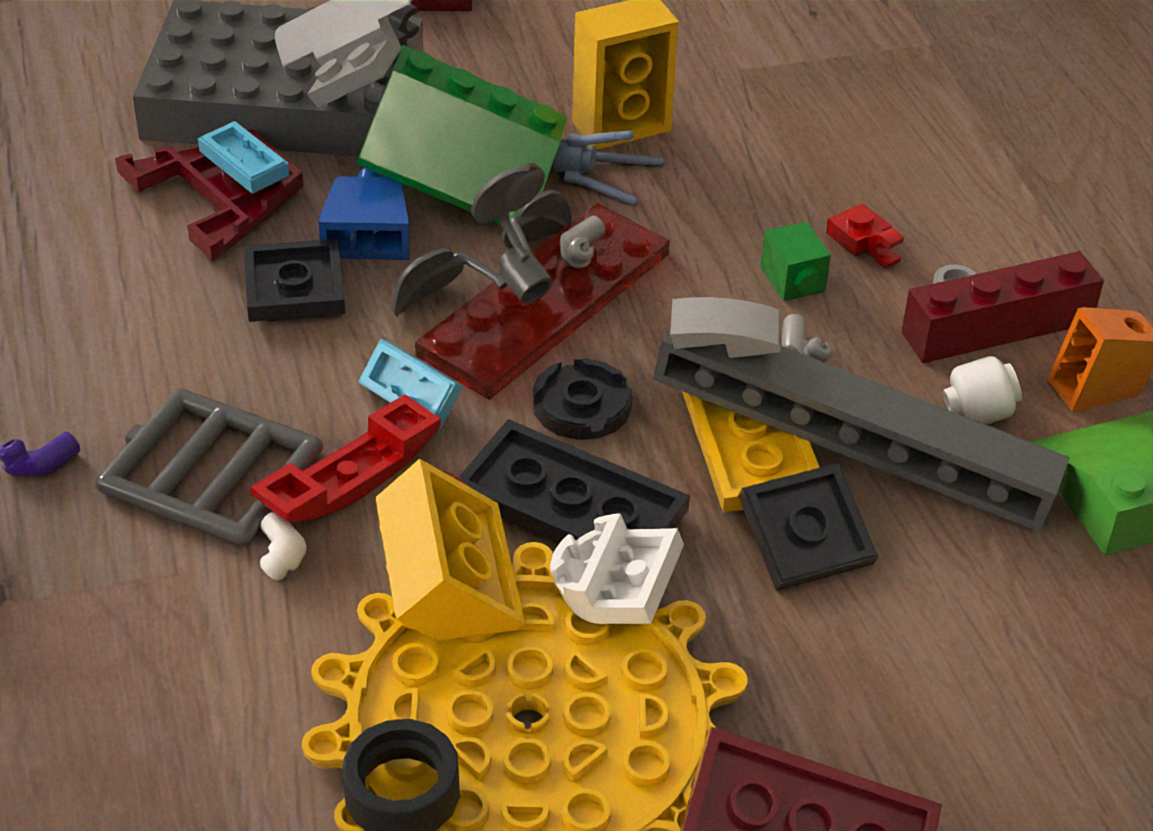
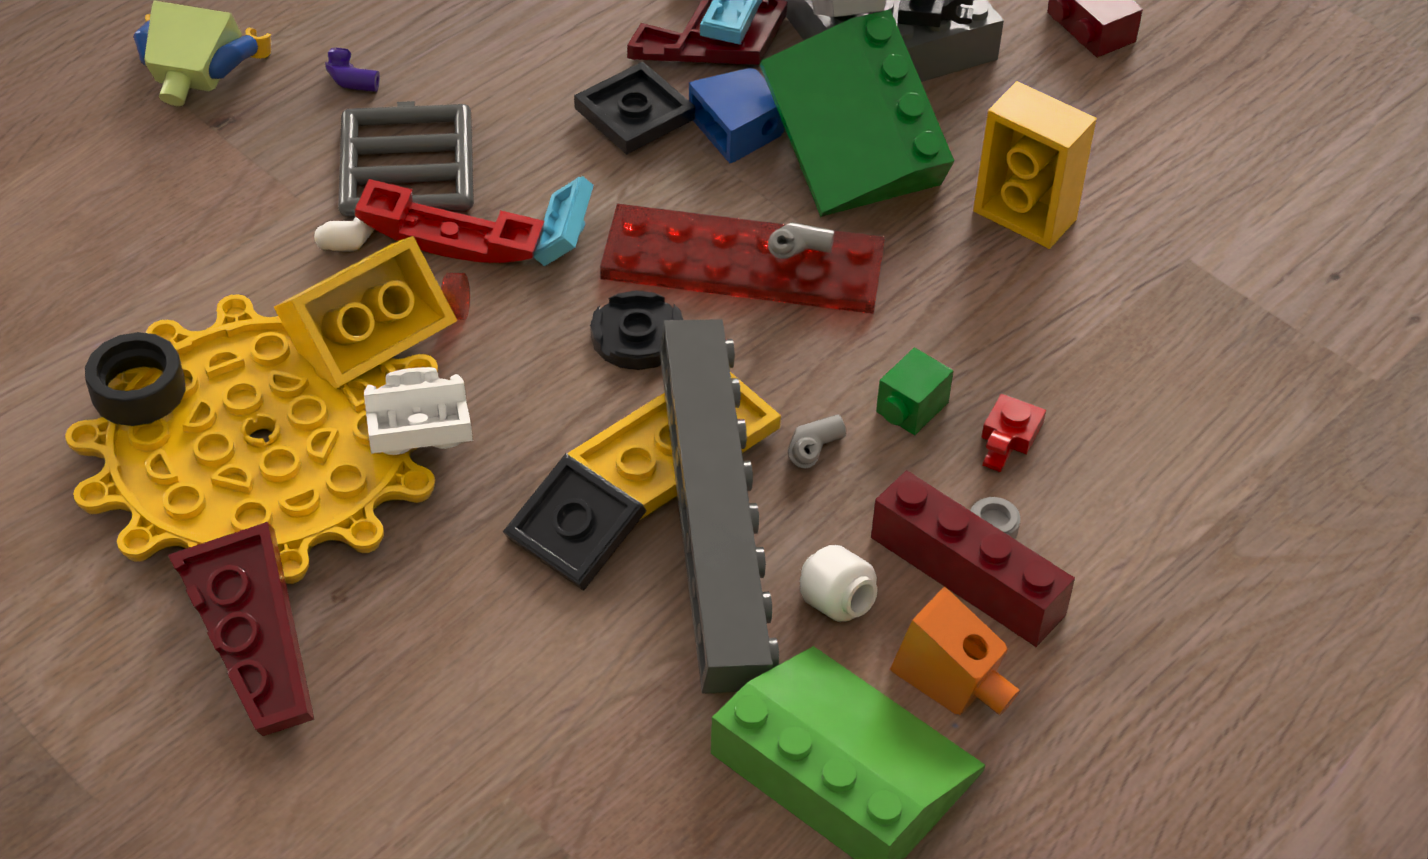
camera: 60 degrees right, 5 degrees up
(520, 270) = (722, 210): dark grey plant -> none
(564, 489) = (511, 364): black plate -> none
(577, 157) = (936, 202): sand blue plant -> none
(739, 324) = (700, 346): light grey slope -> none

